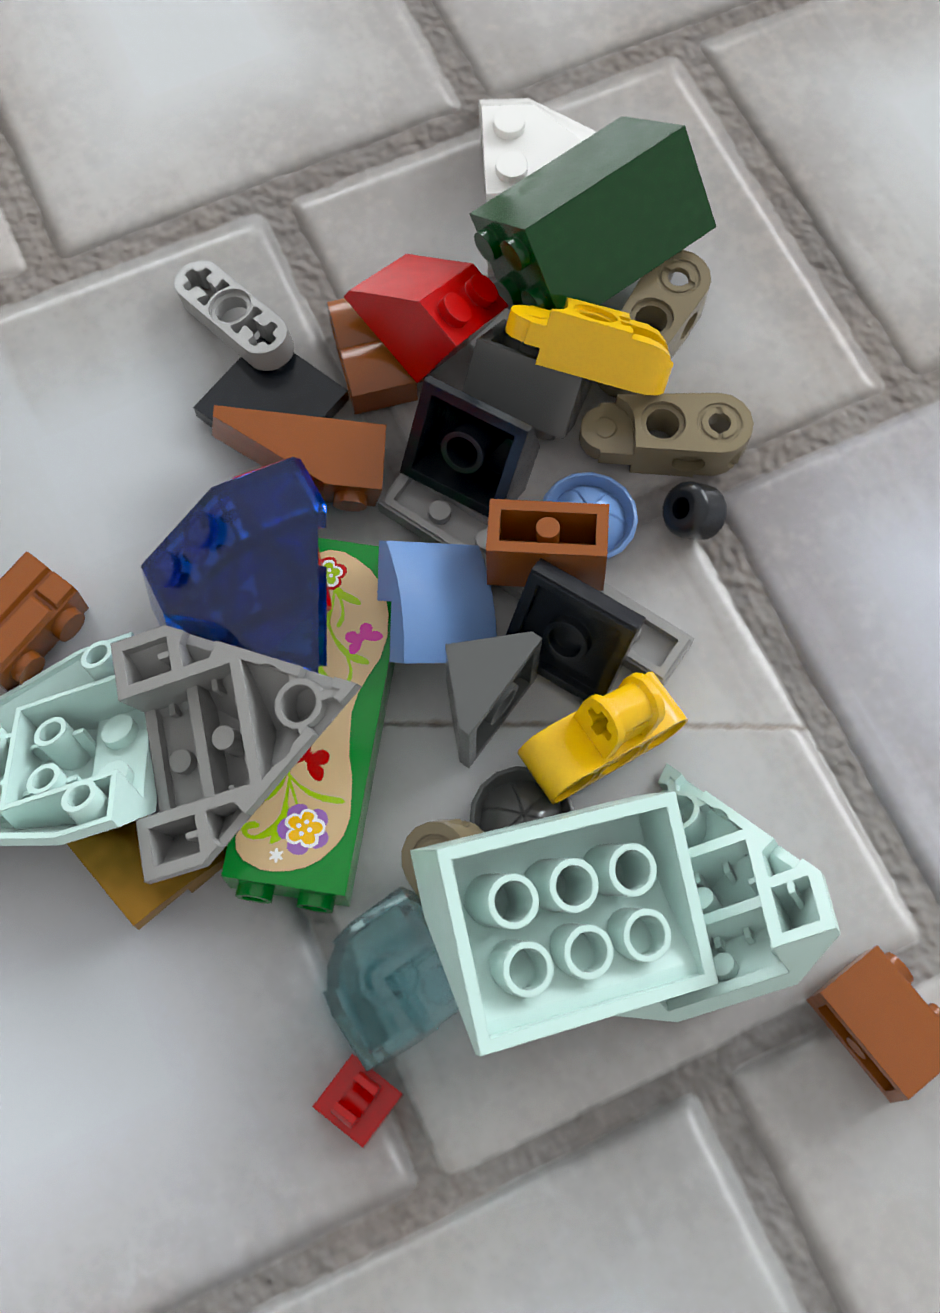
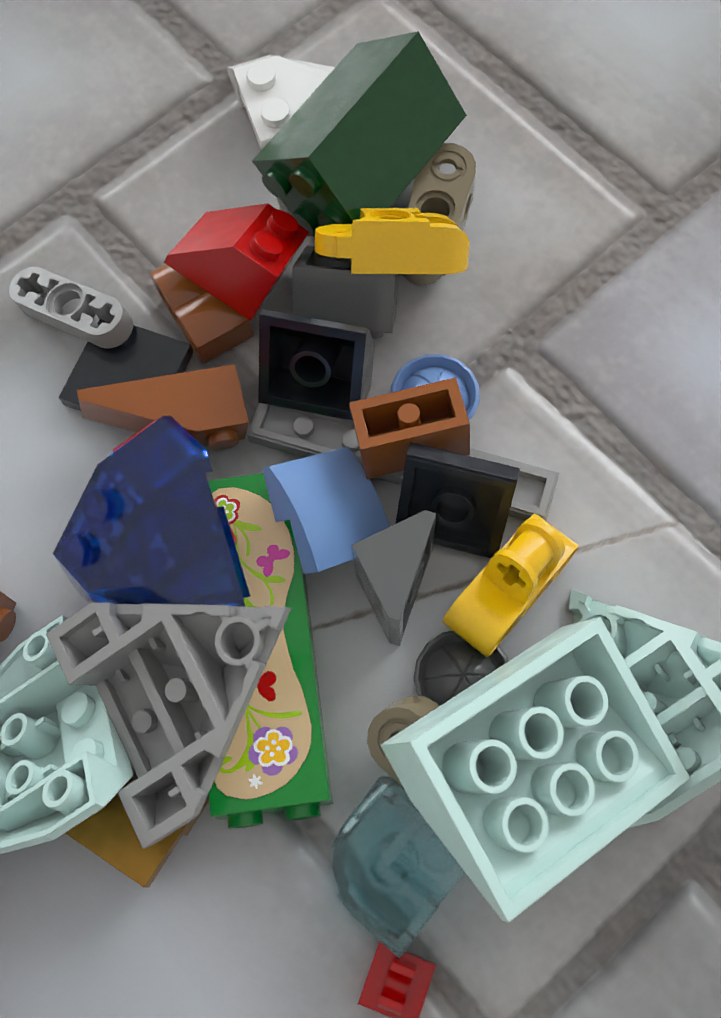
camera: 10 degrees left, 0 degrees up
(692, 420) = (497, 287): dark tan piece -> none
(694, 510) = (524, 362): black piece -> none

